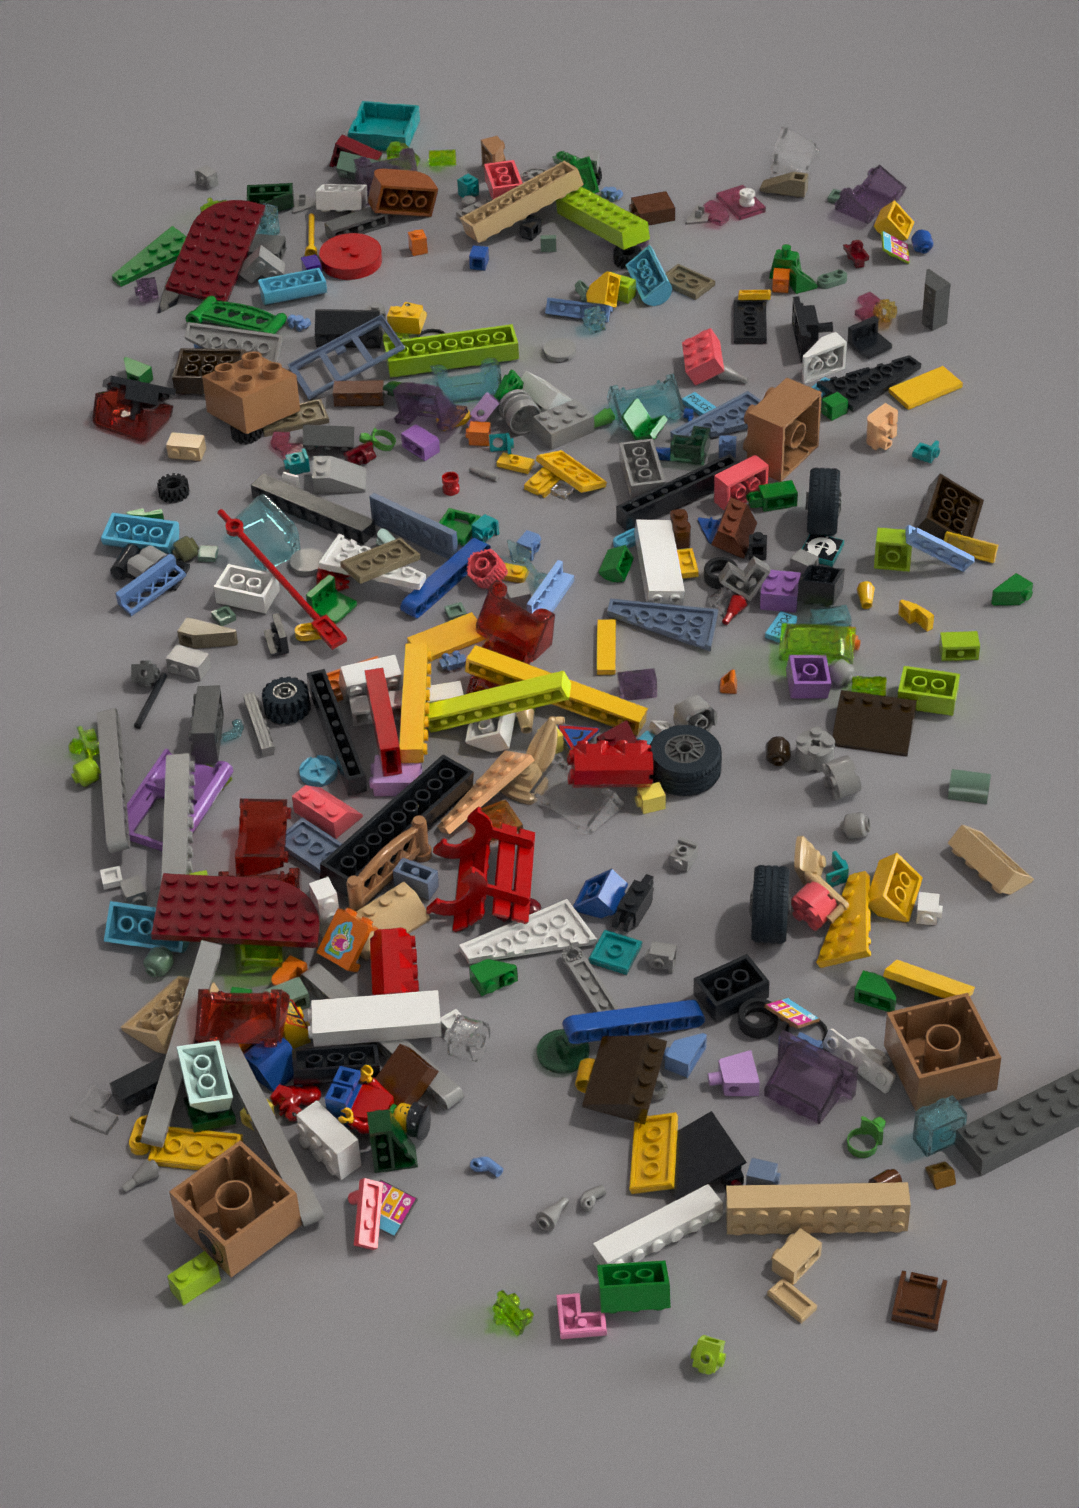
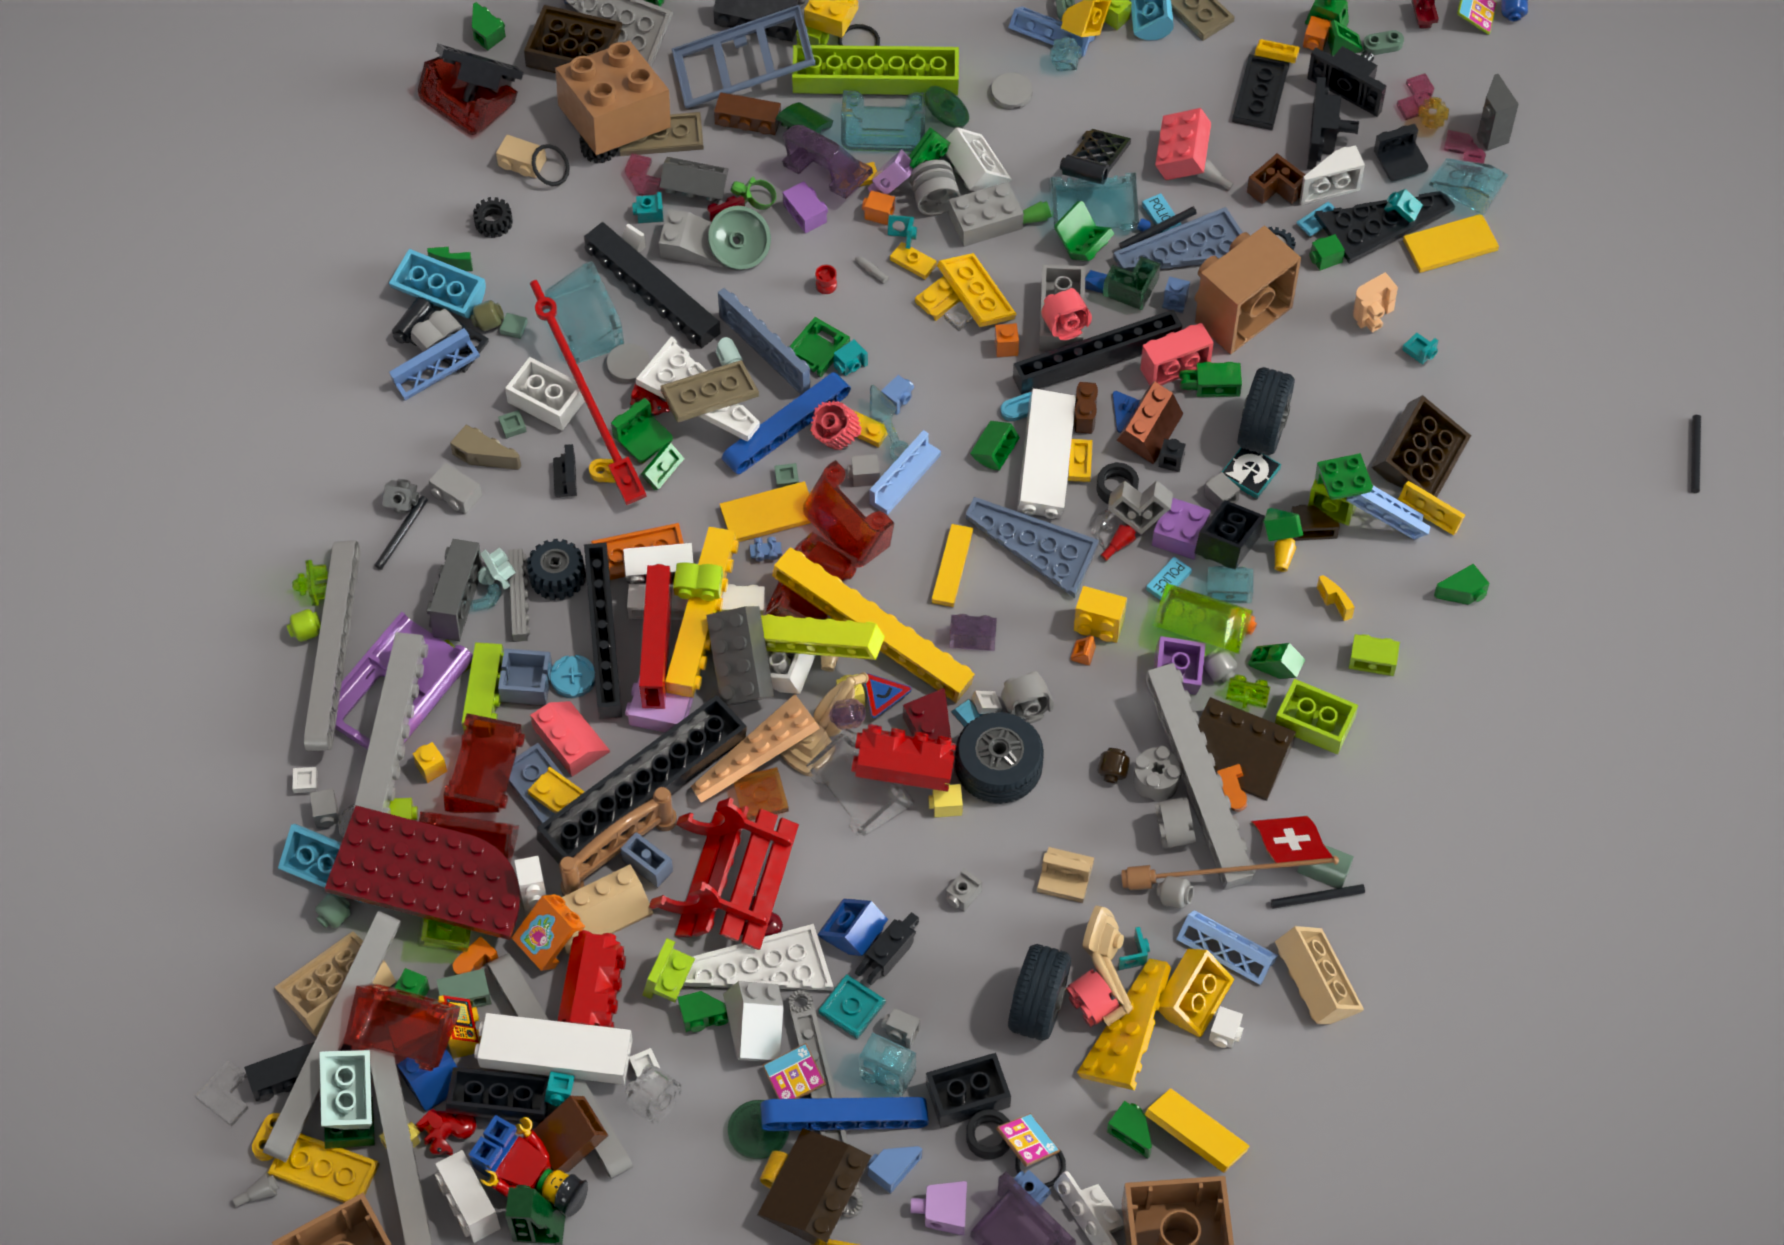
camera: 10 degrees right, 15 degrees up
(203, 453) = (567, 166): none -> black piece
(215, 846) = (429, 762): none -> yellow brick
(237, 707) = (497, 568): none -> light aqua hips
(246, 780) = (483, 682): none -> lime brick
(280, 773) = (525, 676): none -> sand blue piece
(322, 844) = (554, 790): none -> yellow plate
(354, 621) = (662, 466): none -> plate
(378, 460) = (749, 229): none -> sand green dish
(386, 1045) = (558, 1088): none -> teal bracket
(408, 676) = (698, 581): none -> lime brick
(455, 723) = (740, 655): none -> dark grey brick
(456, 951) = (668, 973): none -> lime bracket
(511, 362) = (946, 107): none -> clear green shield
(539, 970) = (755, 1020): none -> light grey slope
(555, 744) = (847, 714): none -> head
(581, 1001) = (794, 1073): none -> piece
(604, 497) = (1006, 340): none -> orange brick
(637, 375) = (1090, 167): none -> black piece
(649, 464) = (1066, 314): none -> coral brick
(658, 980) = (887, 1064): none -> clear light blue brick
(701, 410) = (1159, 227): none -> black bar
(735, 652) = (1100, 614): none -> yellow brick
(763, 831) = (1065, 874): none -> tan bracket
(781, 366) = (1273, 177): none -> reddish brown brick
(811, 291) = (1349, 77): none -> black brick
(850, 741) = (1199, 774): none -> light grey brick
(861, 572) = (1282, 524): none -> green slope
(879, 751) = (1232, 787): none -> orange leg
(882, 572) = (1315, 523): none -> dark brown slope
(884, 365) = (1404, 204): none -> teal bracket
(885, 661) = (1277, 660): none -> green slope
(899, 523) = (1344, 476): none -> green bracket
(912, 328) = (1463, 144): none -> clear pink tile
(915, 850) = (1231, 939): none -> light blue fence
(929, 347) = (1469, 183): none -> clear light blue slope
(932, 774) = (1286, 840): none -> flag
(970, 810) = (1317, 896): none -> black bar

